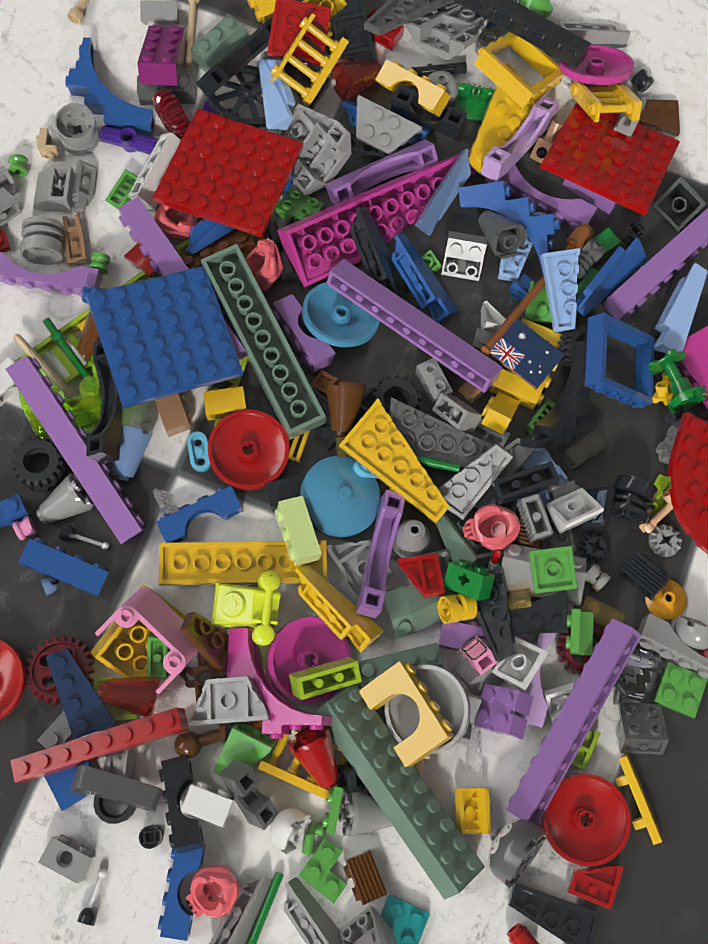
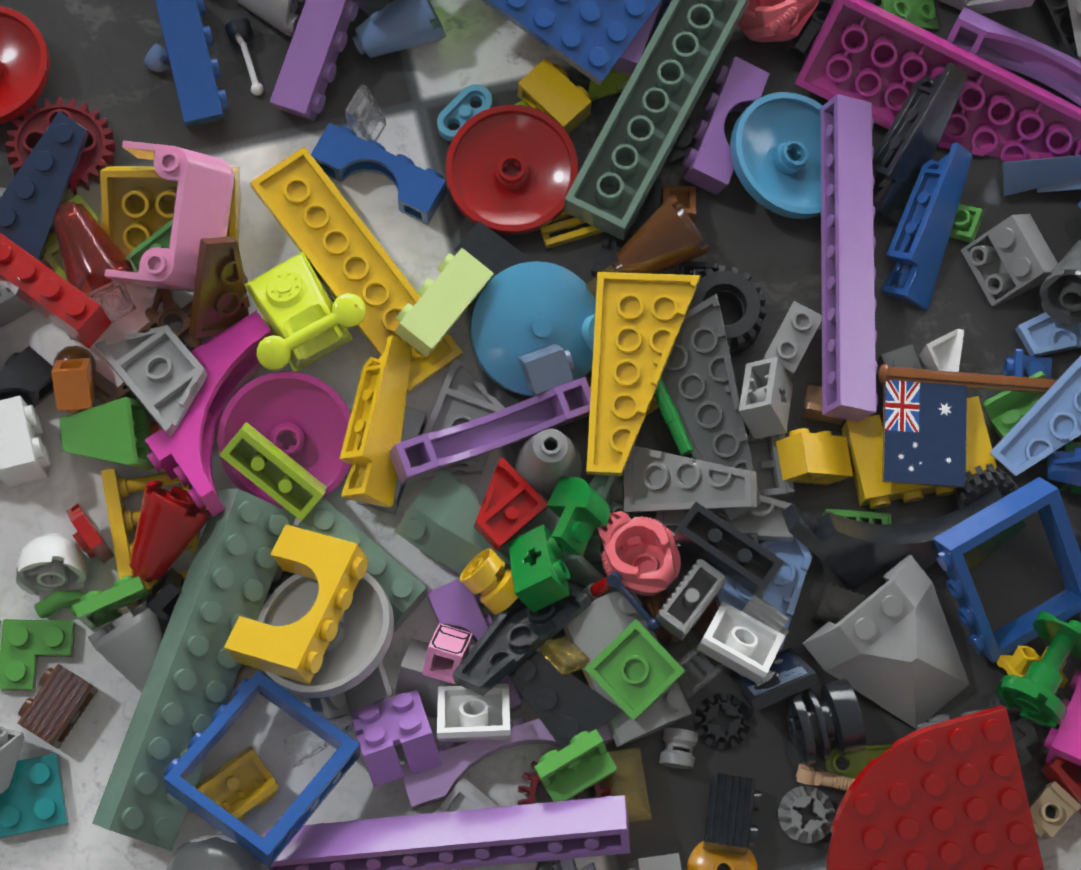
camera: 55 degrees right, 0 degrees up
(173, 414) = (491, 45): medium nougat brick -> none
(201, 751) = (73, 385): none -> orange brick
(241, 784) = (56, 480): dark grey arch -> none
(290, 799) = (88, 536): none -> red wing
(368, 505) = (547, 368): none -> sand blue brick
(453, 539) = (579, 513): none -> green brick
(500, 547) = (614, 580): none -> dark blue hinge
(526, 814) = (269, 847): none -> blue window
(618, 442) = (895, 647): none -> light grey wedge

